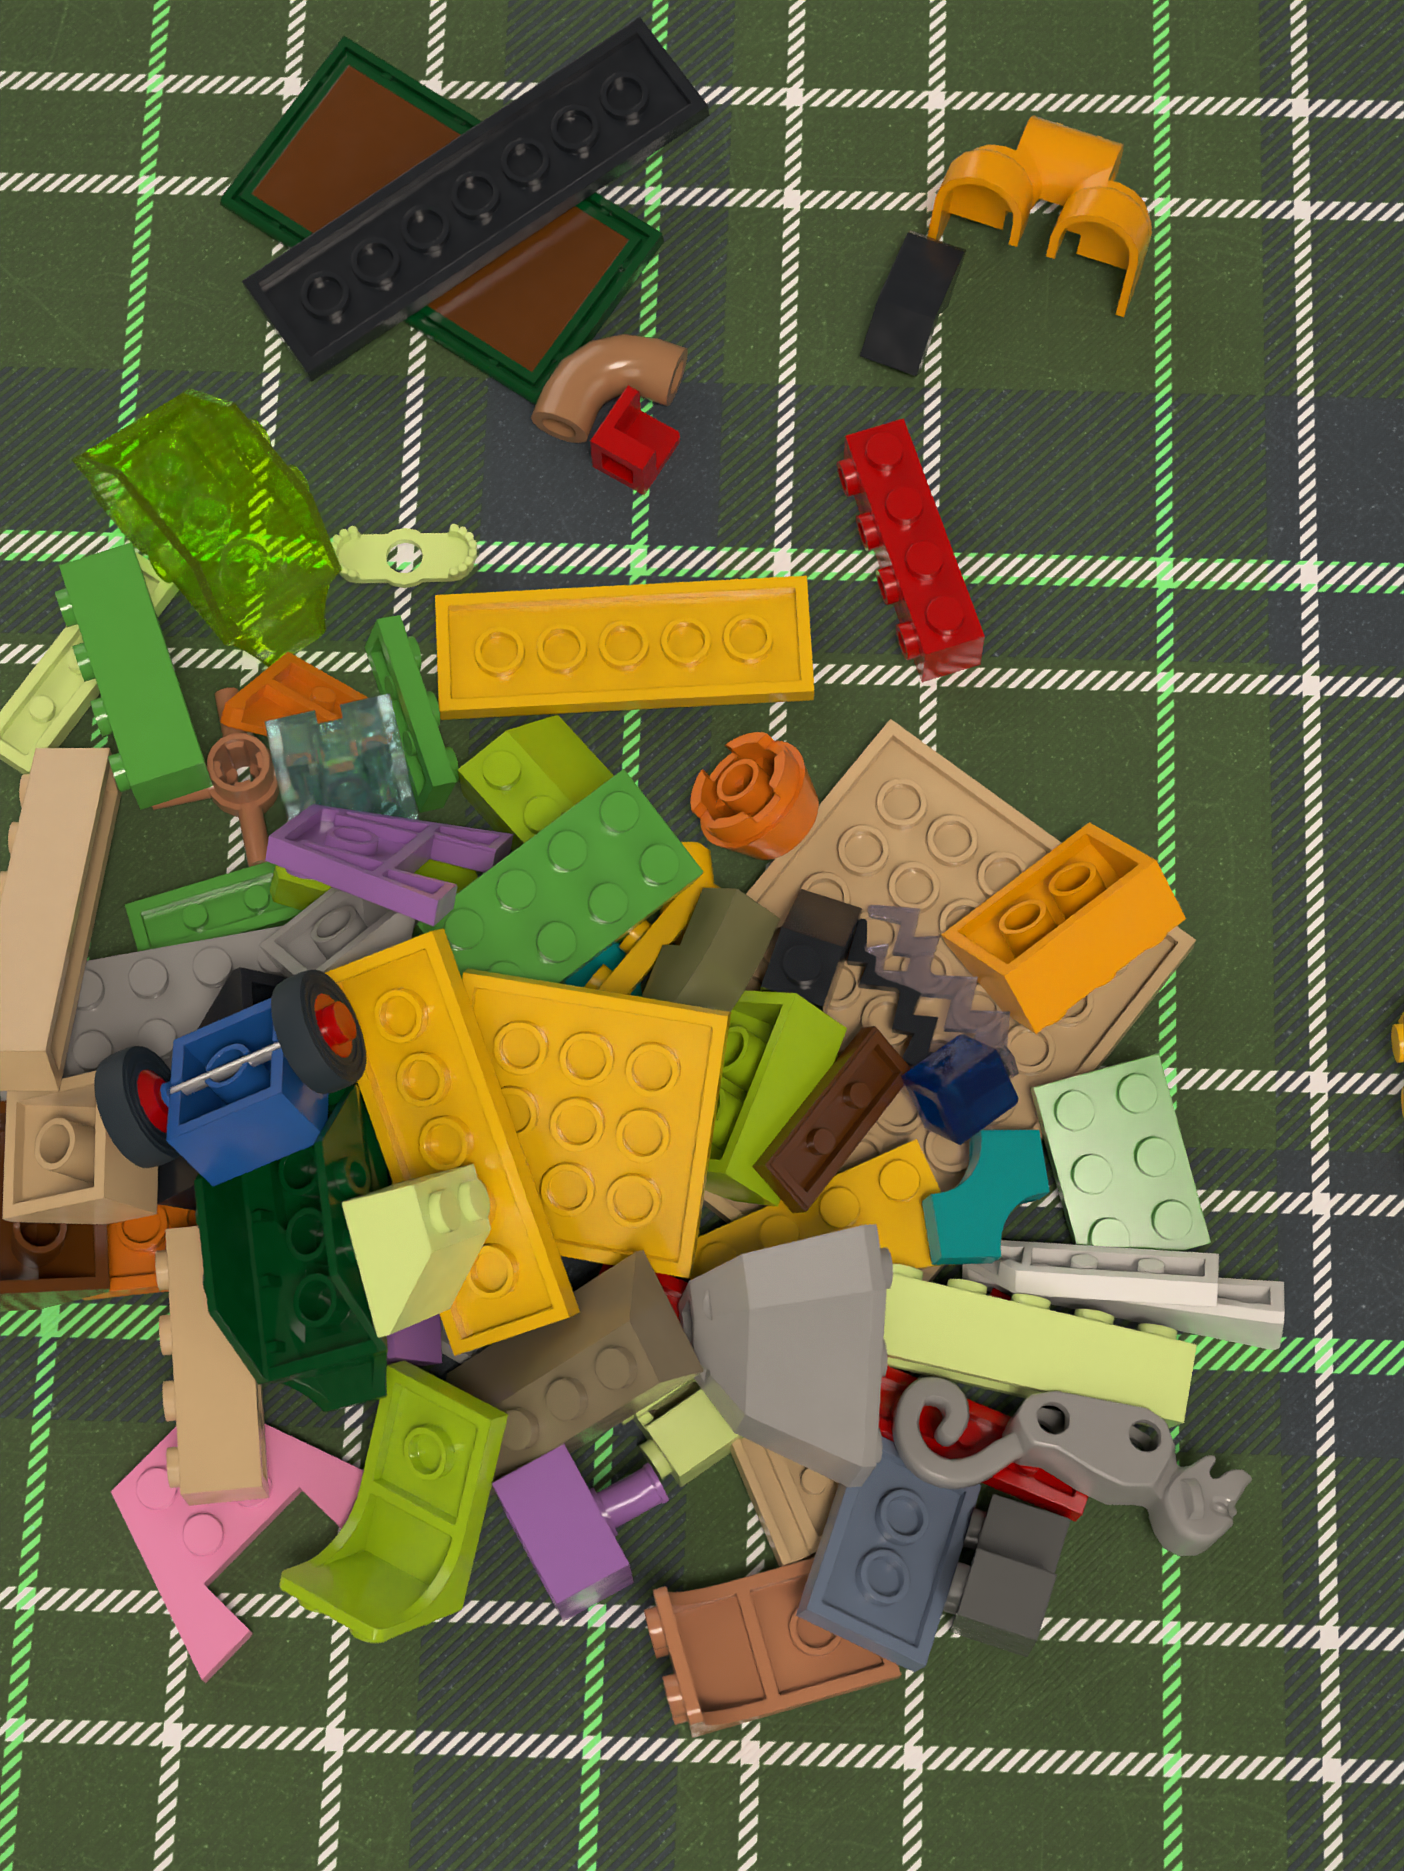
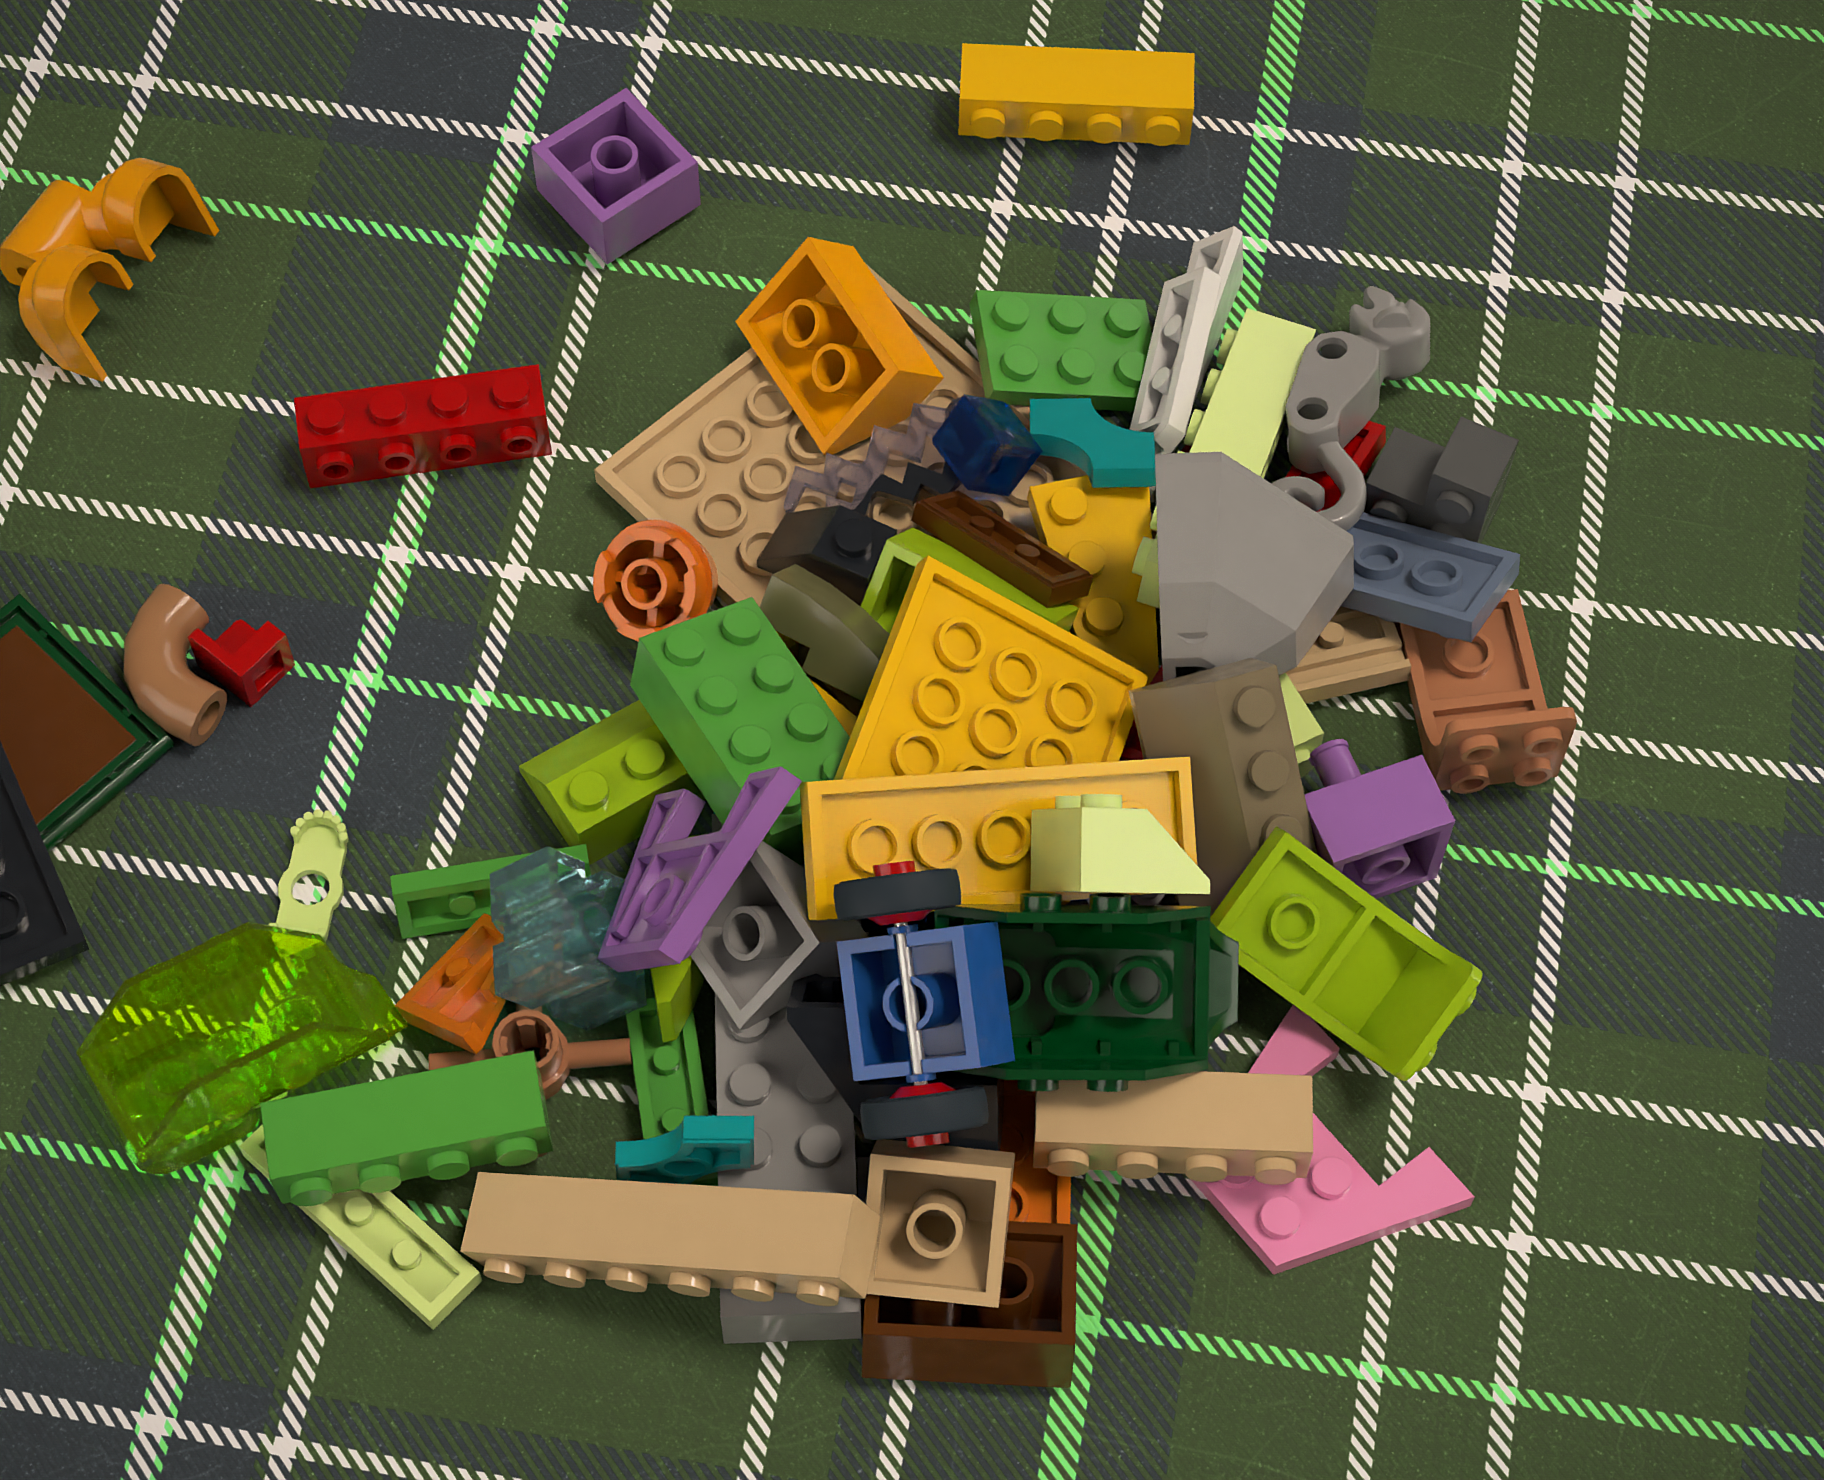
camera: 85 degrees left, 10 degrees down
(125, 917) = (689, 1151): none -> teal tile
(624, 647) = (462, 695): yellow plate -> none
(911, 302) = (169, 391): black slope -> none
(1248, 673) = (616, 175): none -> medium lavender brick

